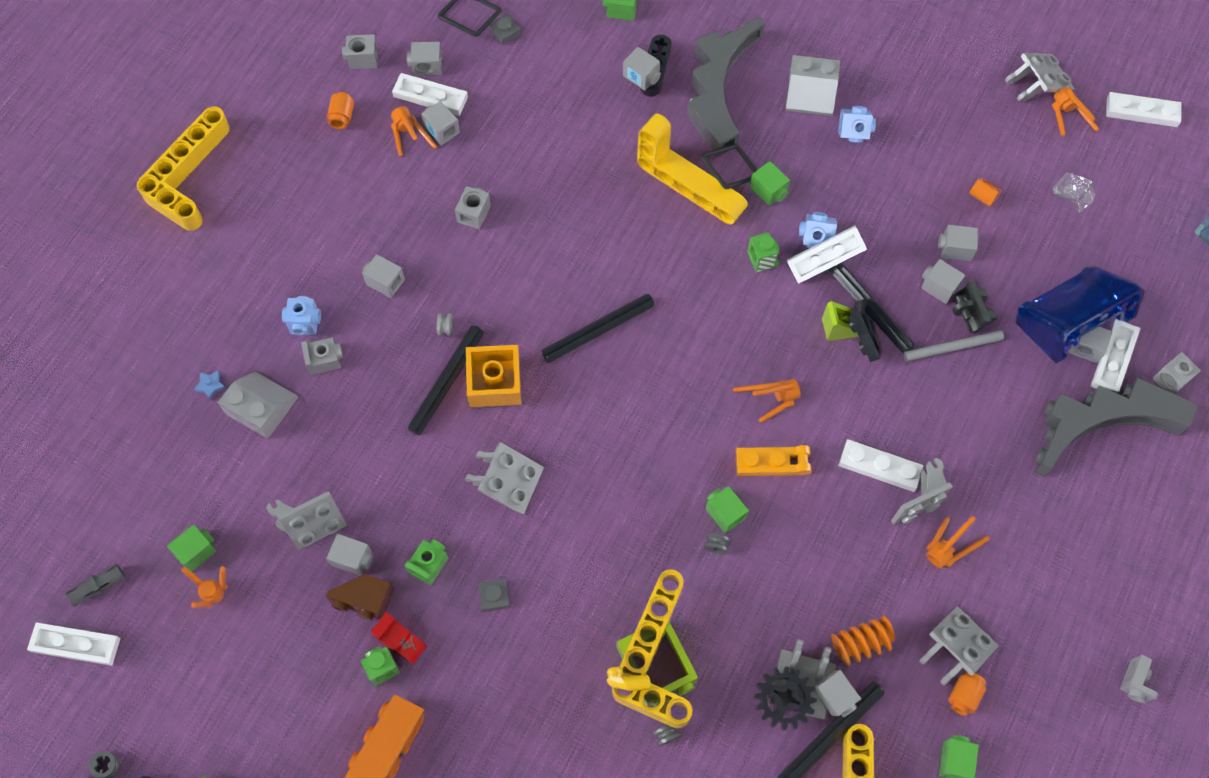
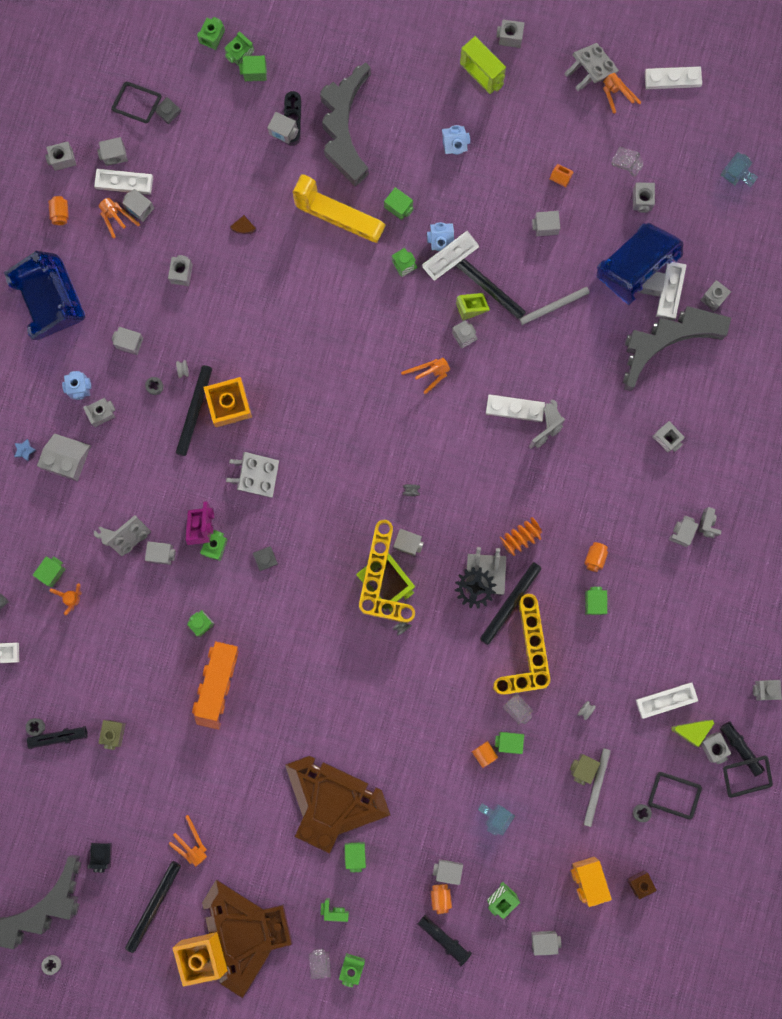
camera: 10 degrees left, 15 degrees up
(296, 199) = (46, 293): none -> clear blue windscreen
(364, 595) = (176, 578): reddish brown slope -> none
(398, 639) = (208, 603): red leg -> none
(402, 330) = (152, 391): none -> dark grey bush
(414, 527) = (199, 525): none -> magenta bracket
(565, 172) = (243, 226): none -> reddish brown tile
(597, 328) = (294, 347): black axle -> none
(628, 683) = (369, 603): yellow arm -> none
(699, 615) = (408, 542): none -> light grey brick
(726, 509) = (412, 464): bright green brick -> none
(734, 146) = (355, 186): black piece -> none
(772, 461) = (438, 421): light orange plate -> none
(812, 85) = (416, 112): slope -> none
(827, 355) = (464, 334): none -> light grey brick
(837, 694) = (509, 577): light grey brick -> none
(866, 331) = (488, 310): black wing -> none
(905, 47) = (483, 65): none -> lime window
(942, 280) = (538, 257): light grey brick -> none
(942, 552) = (567, 463): orange plant -> none
(944, 22) = (510, 26): none -> light grey brick
(963, 640) = (589, 522): light grey plate -> none
(972, 307) = (563, 274): pearl dark grey hips -> none
(1091, 227) = (647, 190): none -> light grey brick
(1094, 539) = (669, 430): none -> light grey brick
(1101, 684) = (684, 531): none -> light grey brick

